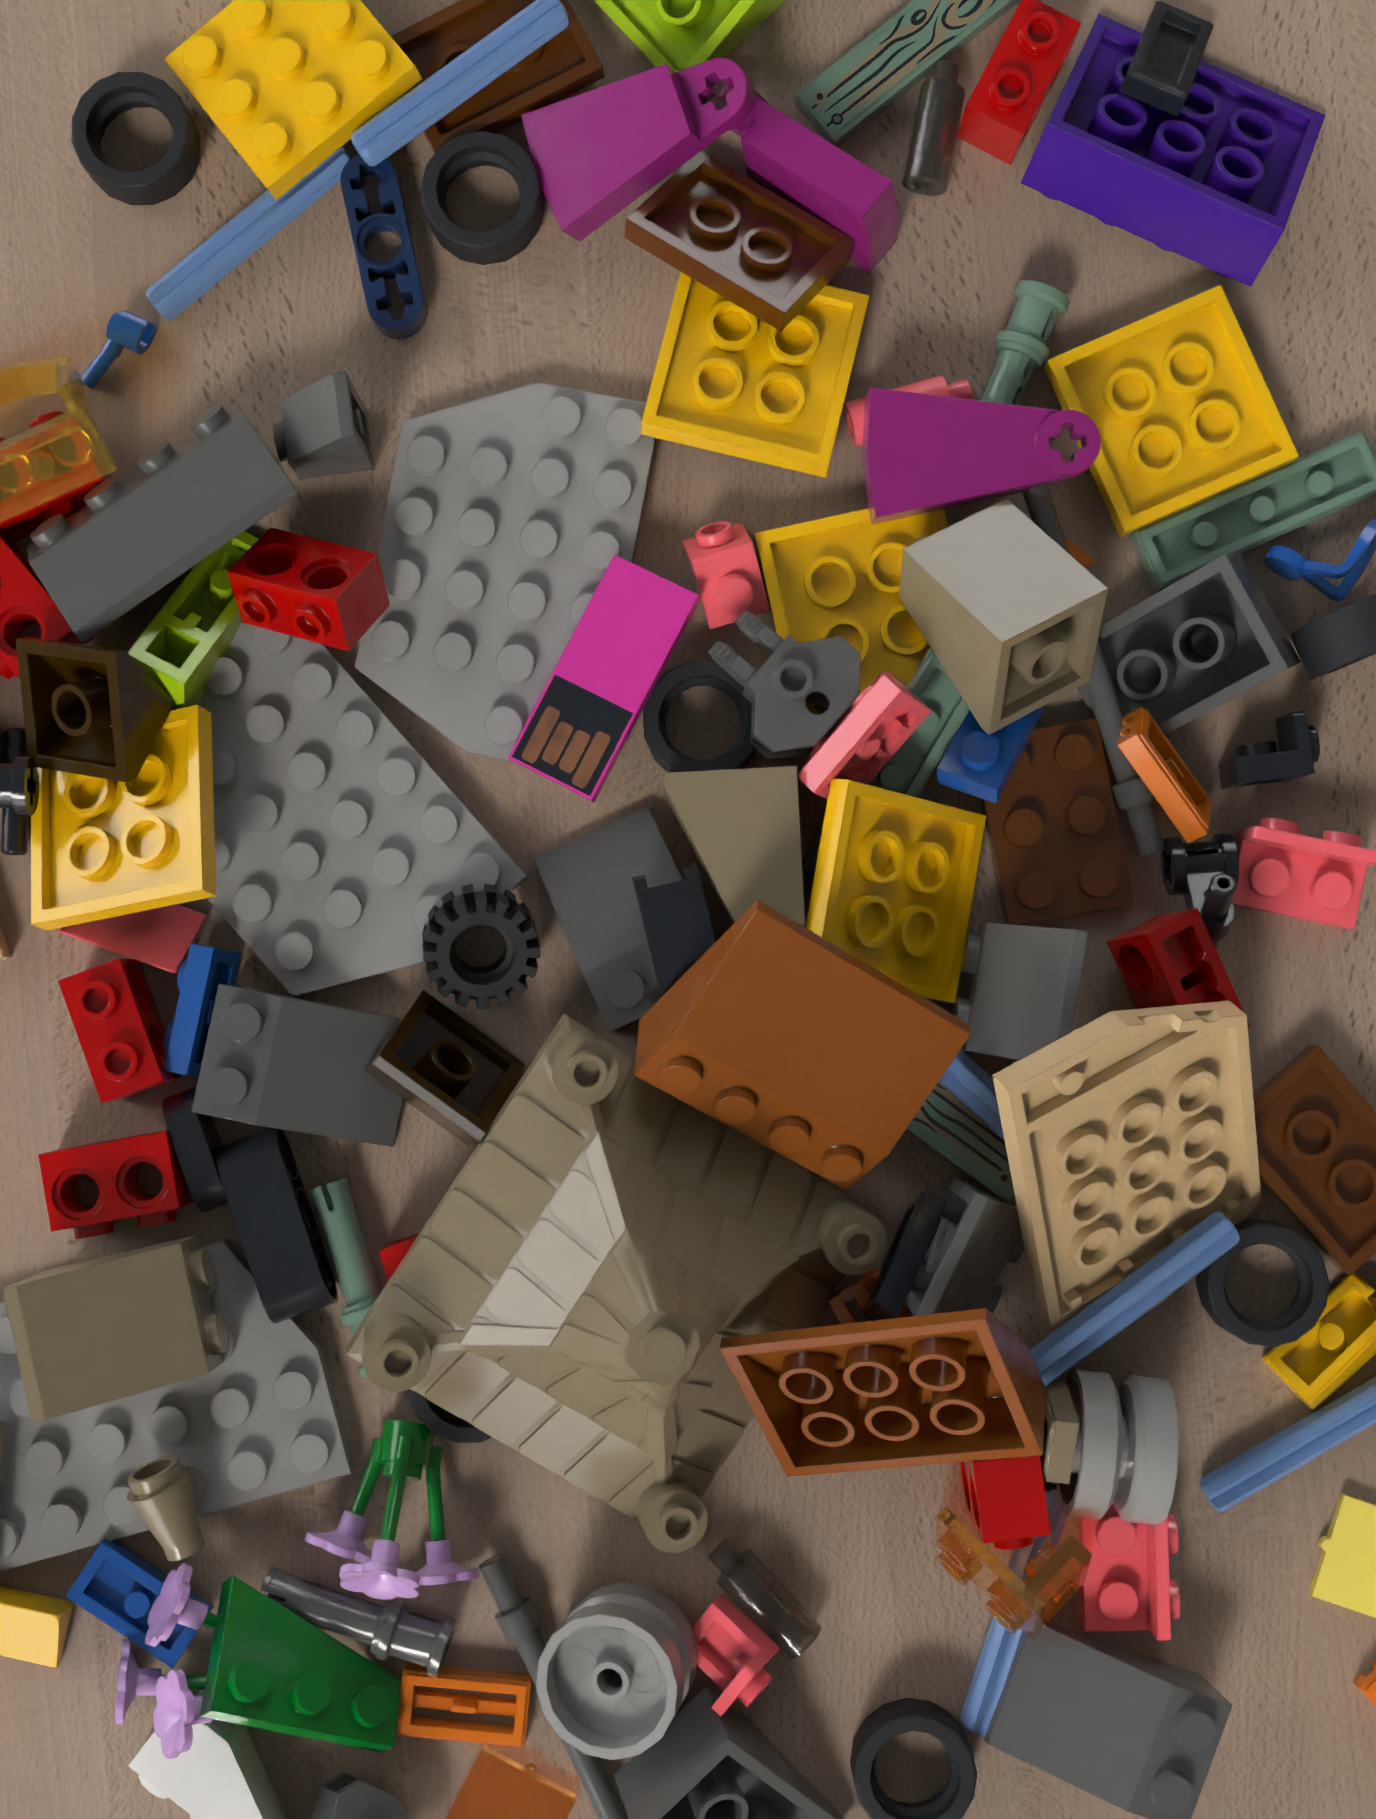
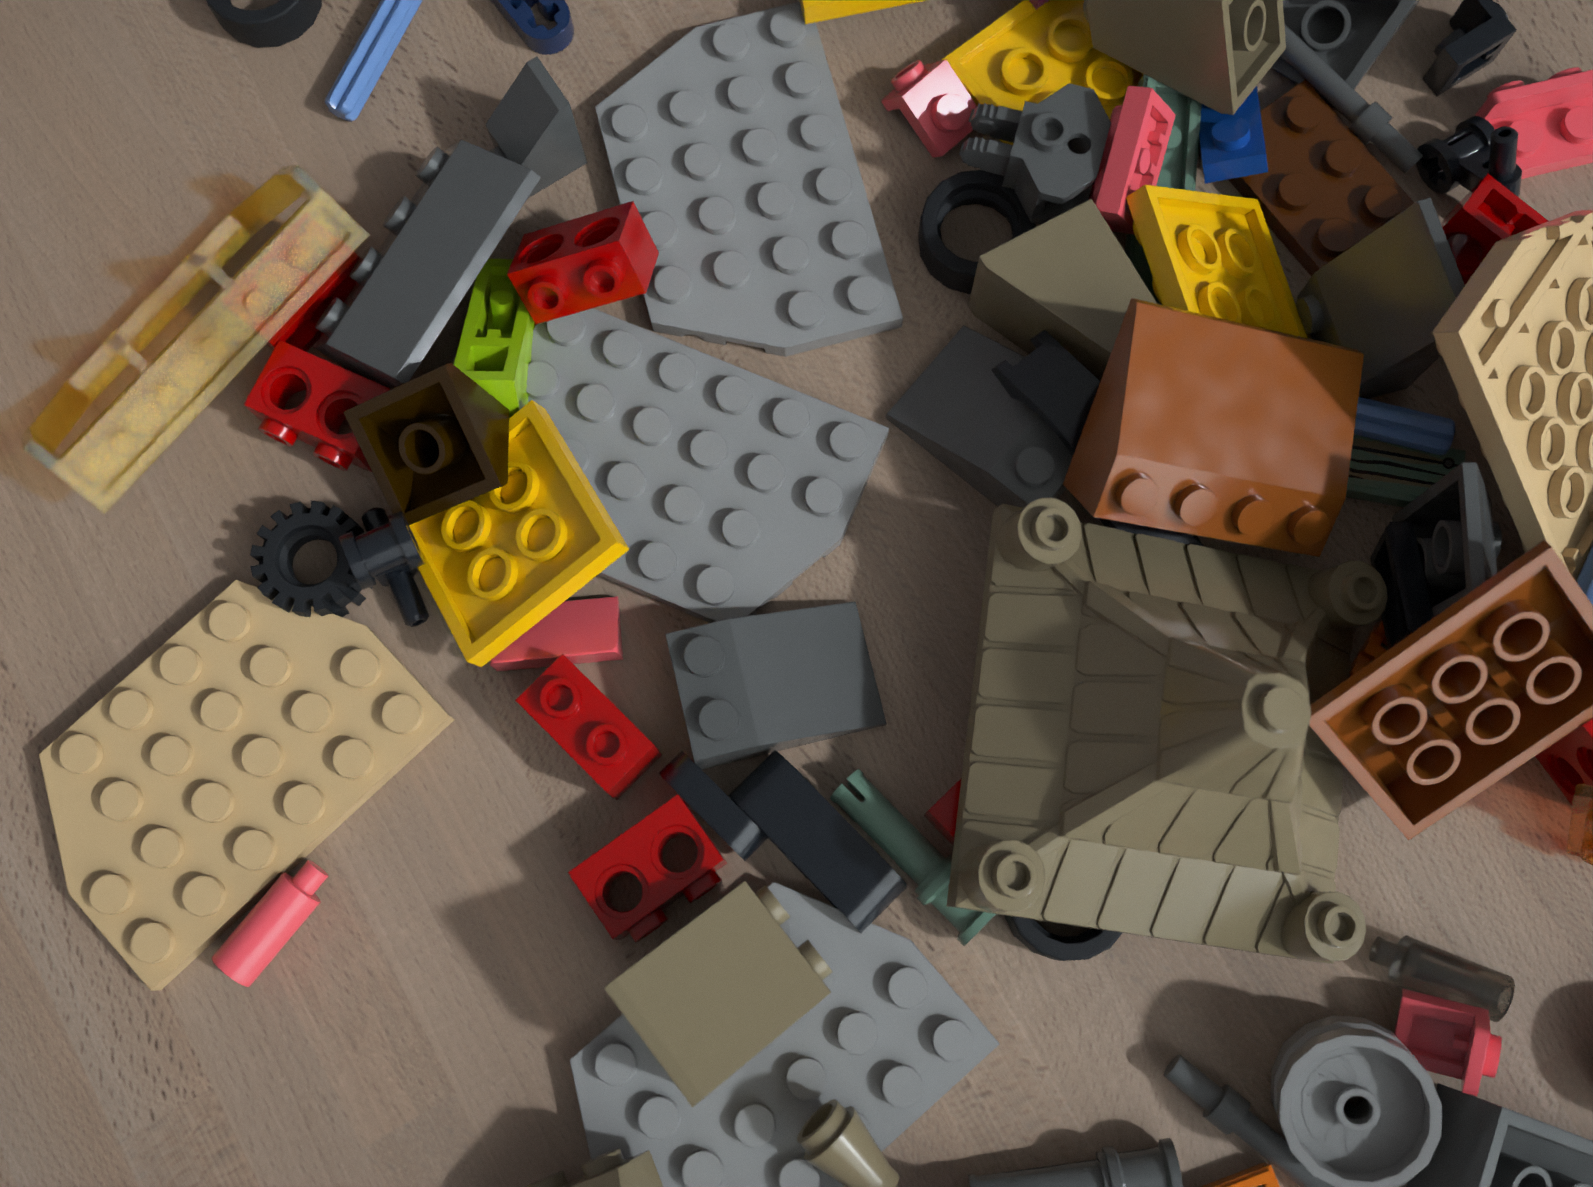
camera: 25 degrees left, 10 degrees down
(122, 331) = (322, 141): blue hand -> none
(198, 986) = (647, 654): blue plate -> none
(404, 1452) = (1048, 1001): plant -> none
(446, 1069) = (904, 629): dark brown slope -> none
(489, 981) = (918, 500): black tyre -> none
(604, 678) = (876, 227): dark pink piece -> none
(1165, 774) = (1393, 89): orange tile -> none

